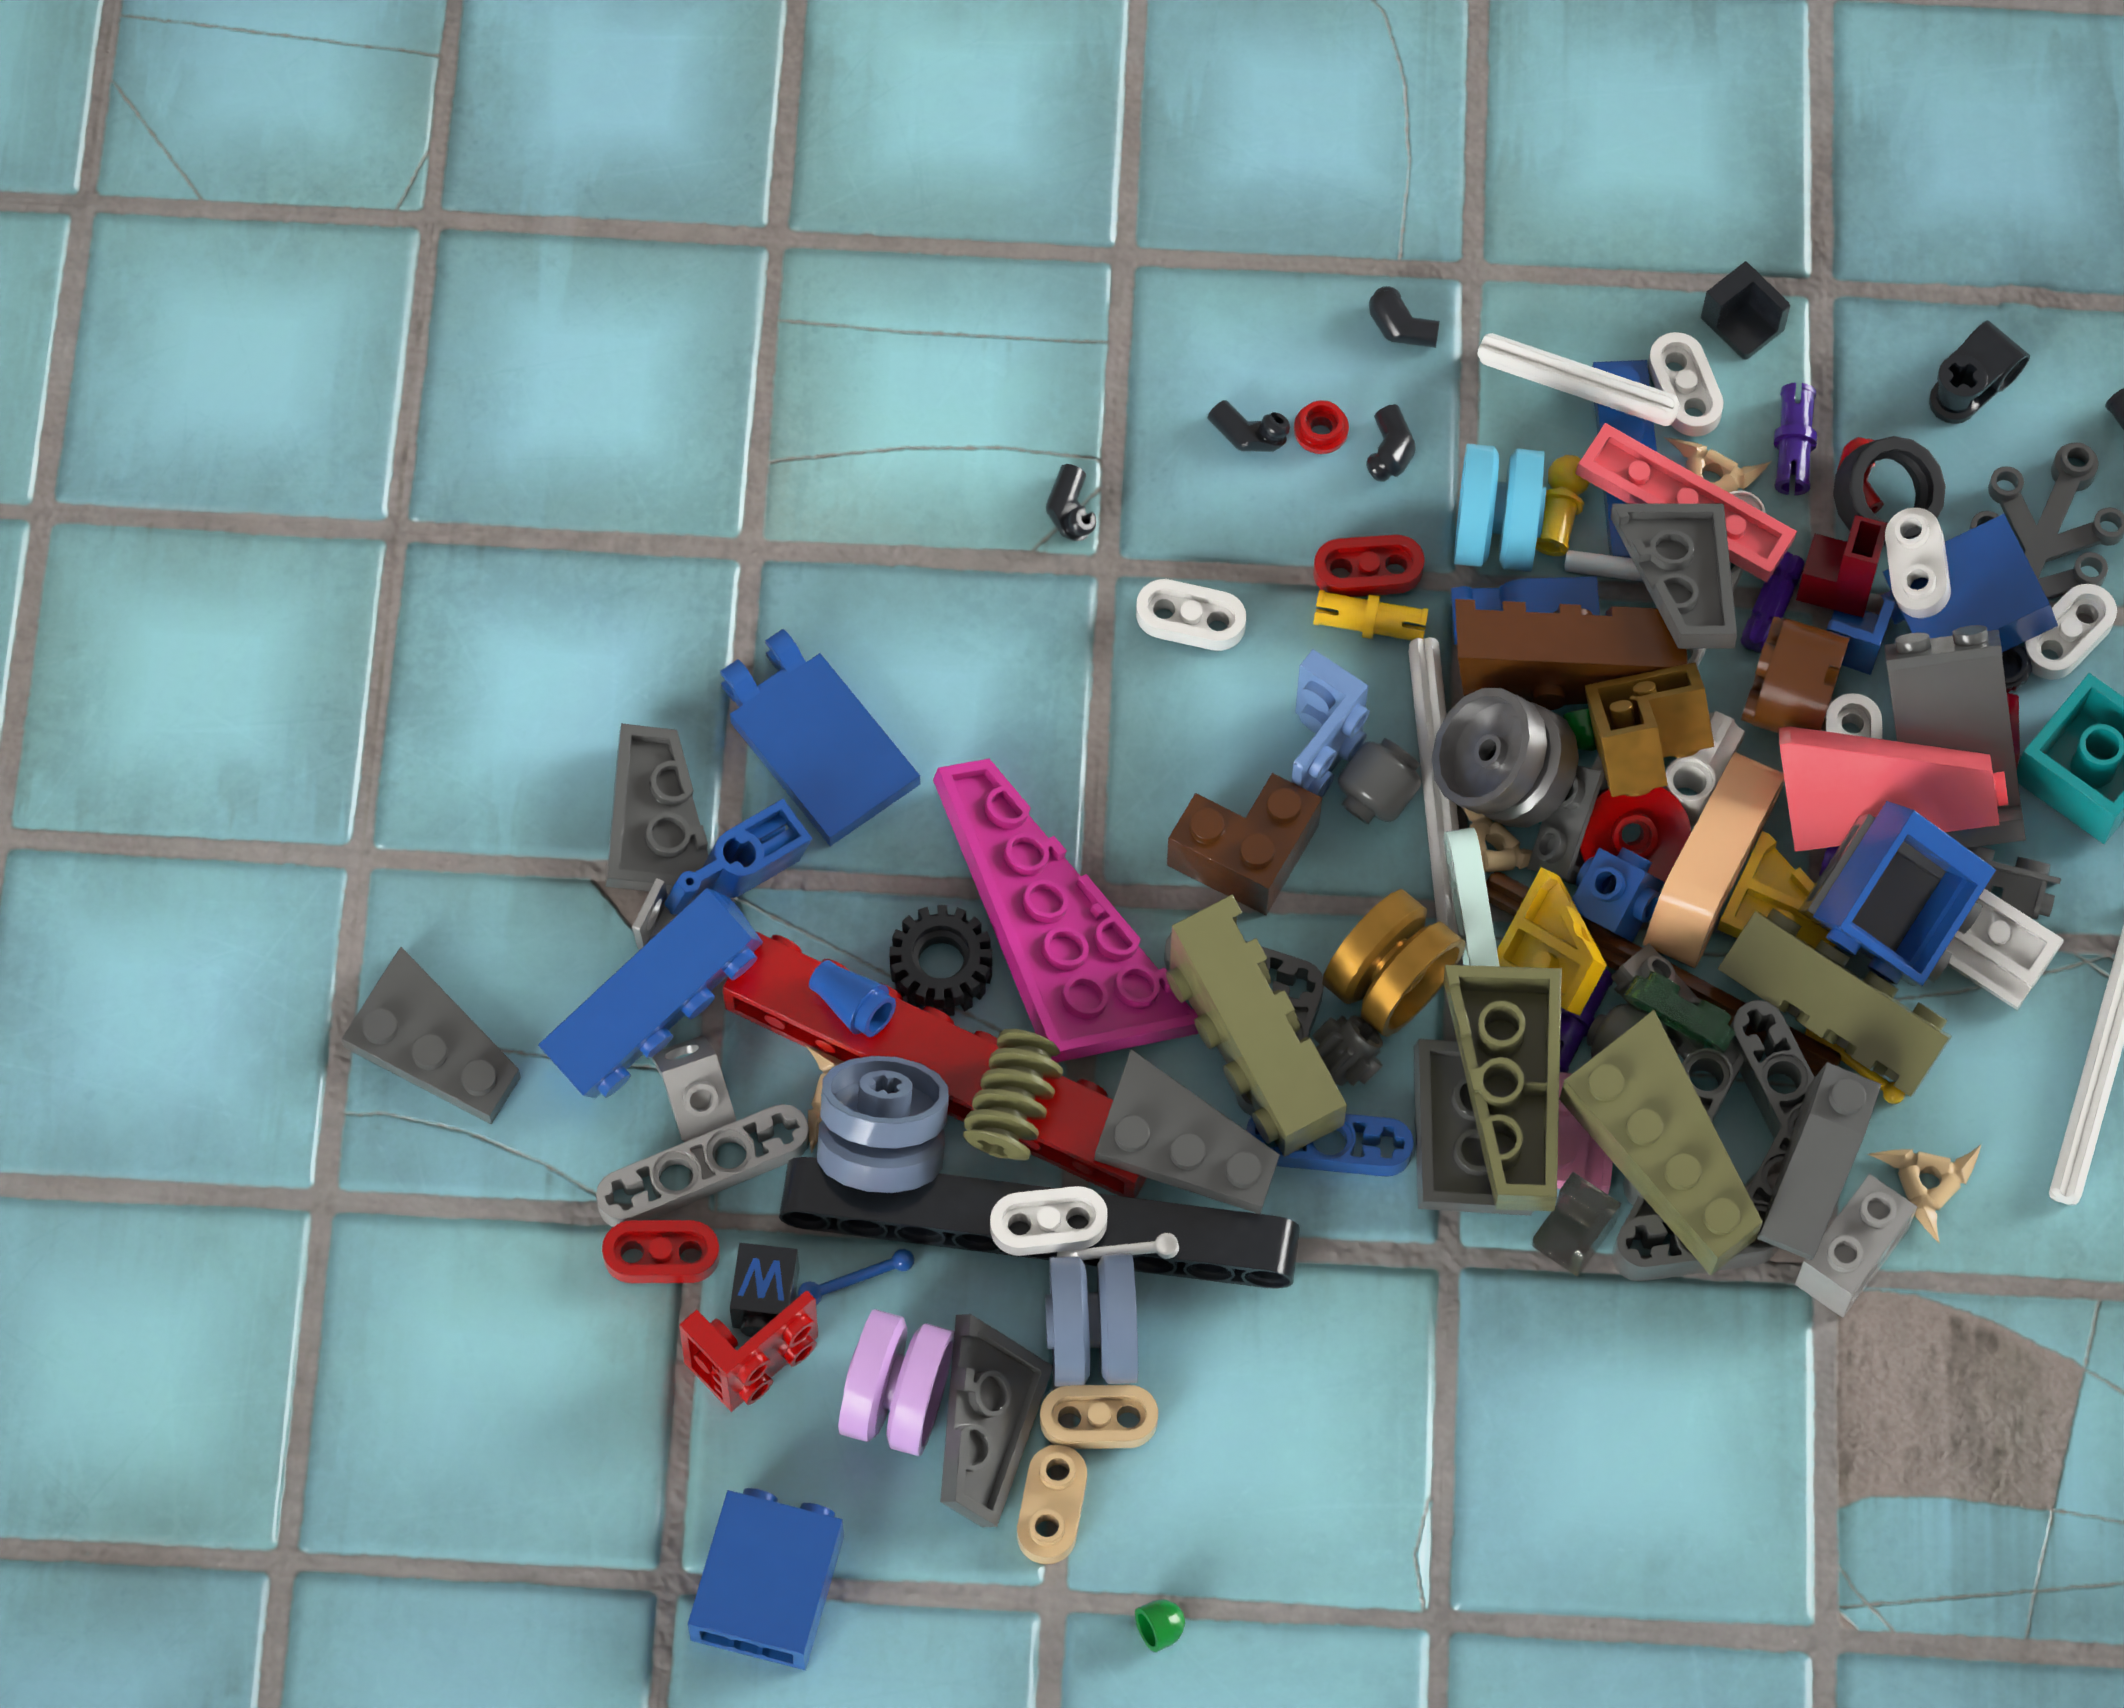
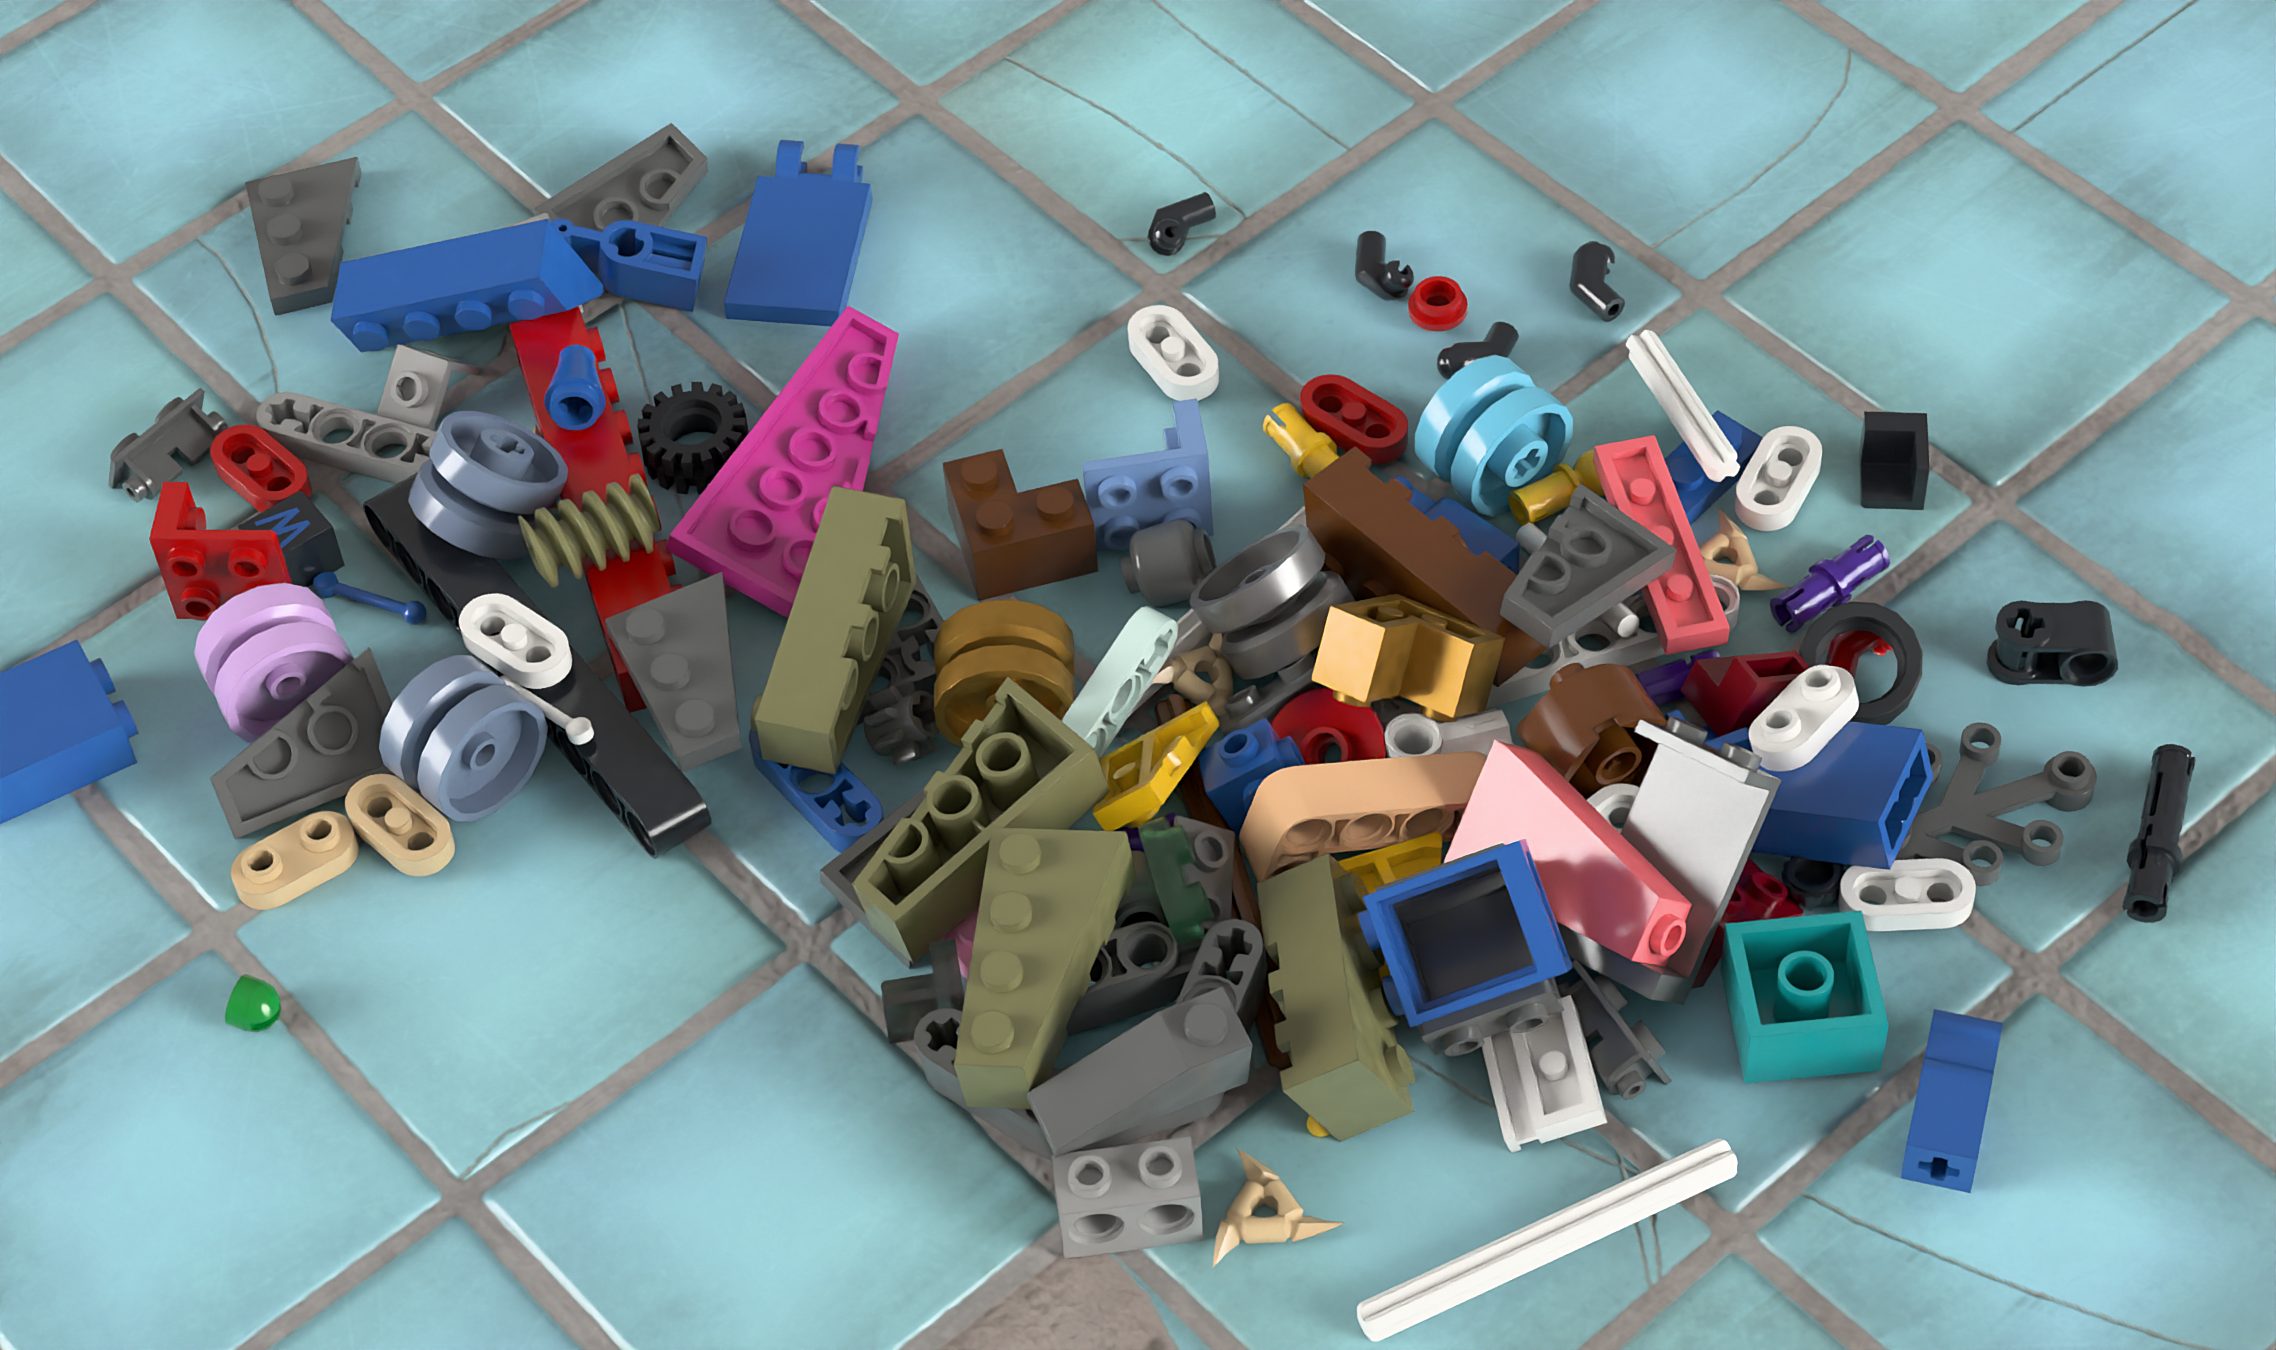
camera: 50 degrees right, 15 degrees down
(562, 1271) = (146, 458): none -> dark grey hinge

